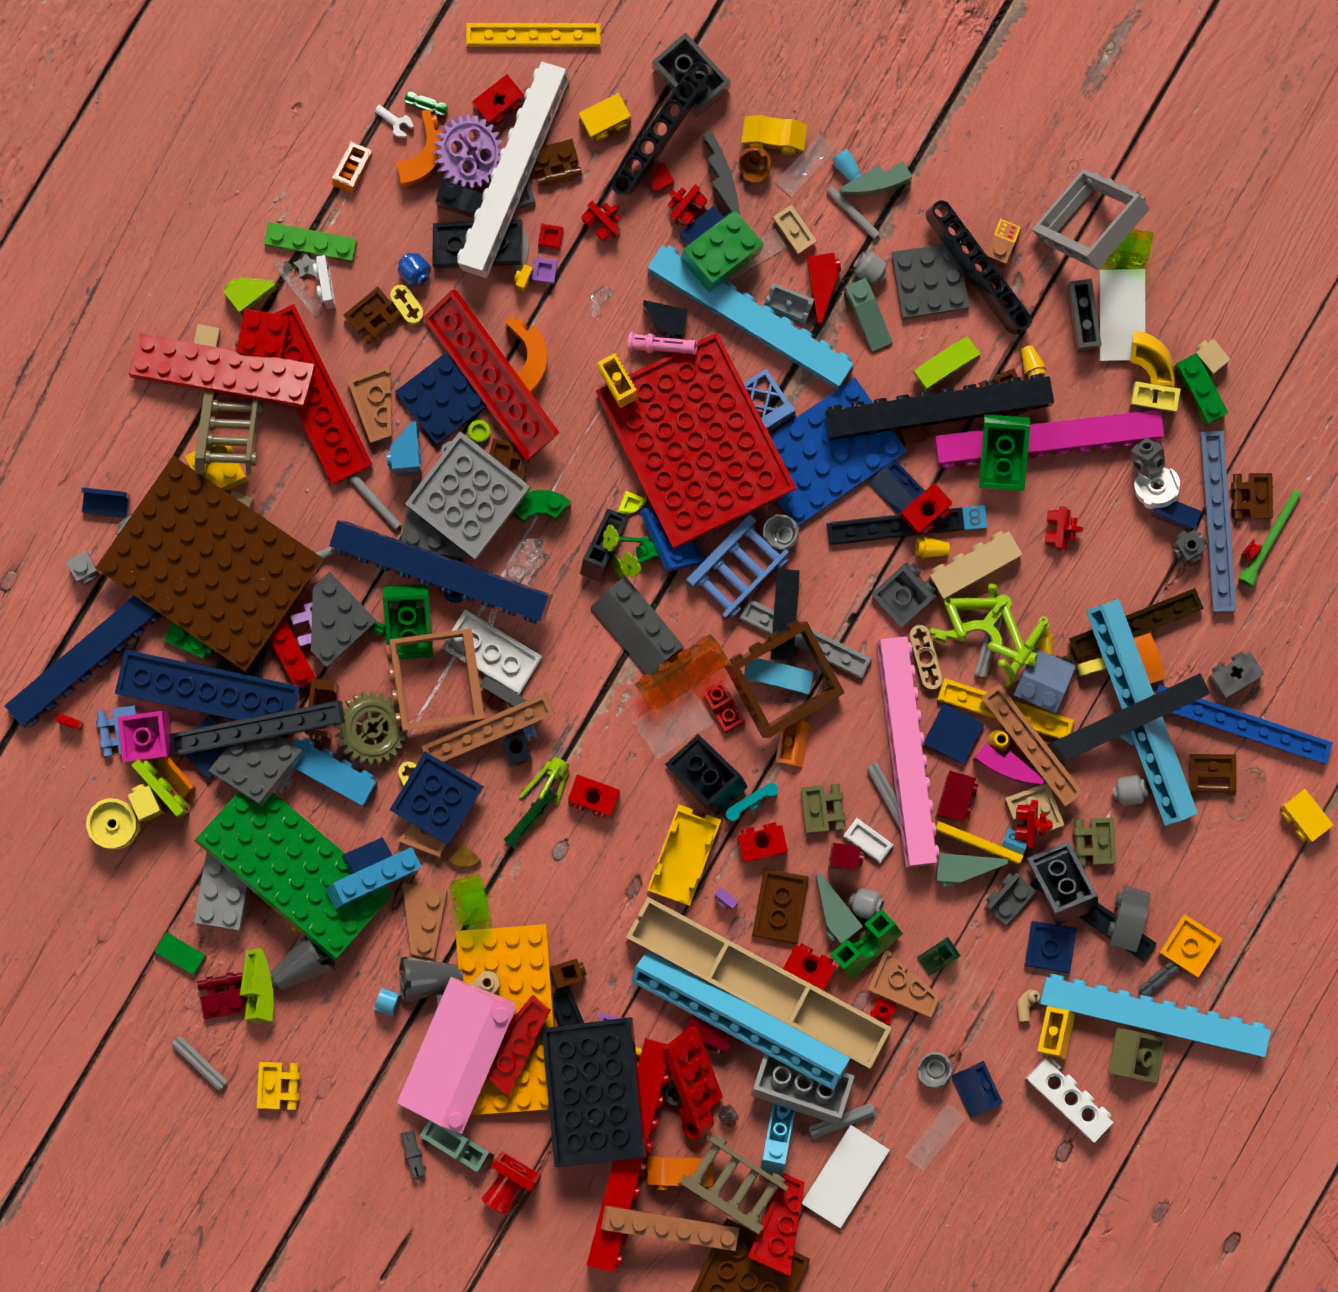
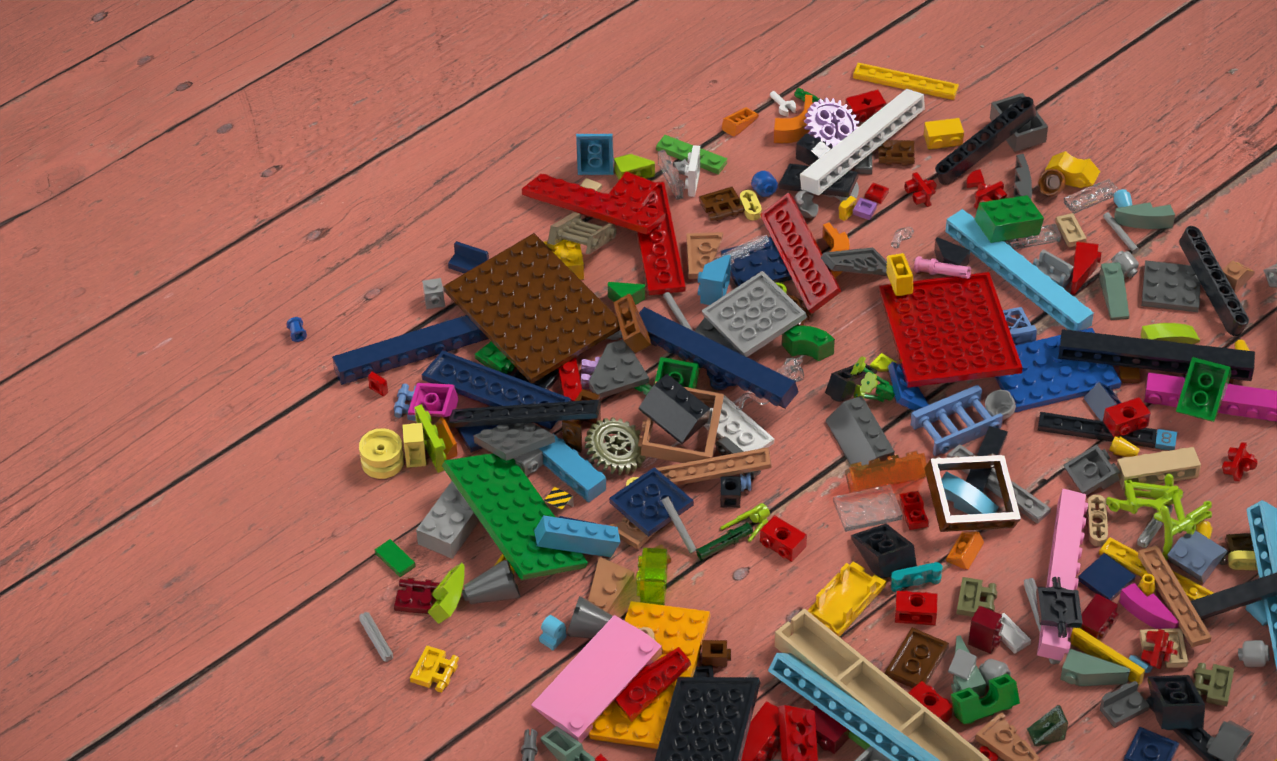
camera: 20 degrees right, 35 degrees down
(198, 293) = (595, 154): none -> dark azure slope
(307, 497) = (618, 290): none -> green slope
(332, 555) = (631, 324): none -> dark orange slope
(332, 825) = (559, 498): none -> sticker
(422, 394) = (743, 250): none -> clear plate
(425, 677) = (675, 409): none -> black slope
(474, 290) = (806, 206): none -> light grey hair
(476, 821) = (679, 525): none -> light grey bar
(564, 368) = (857, 261): none -> dark grey wing
(725, 899) = (871, 638): medium lavender plate -> none
(833, 916) = (963, 664): none -> light grey slope
(917, 816) = (1059, 607): none -> black plate

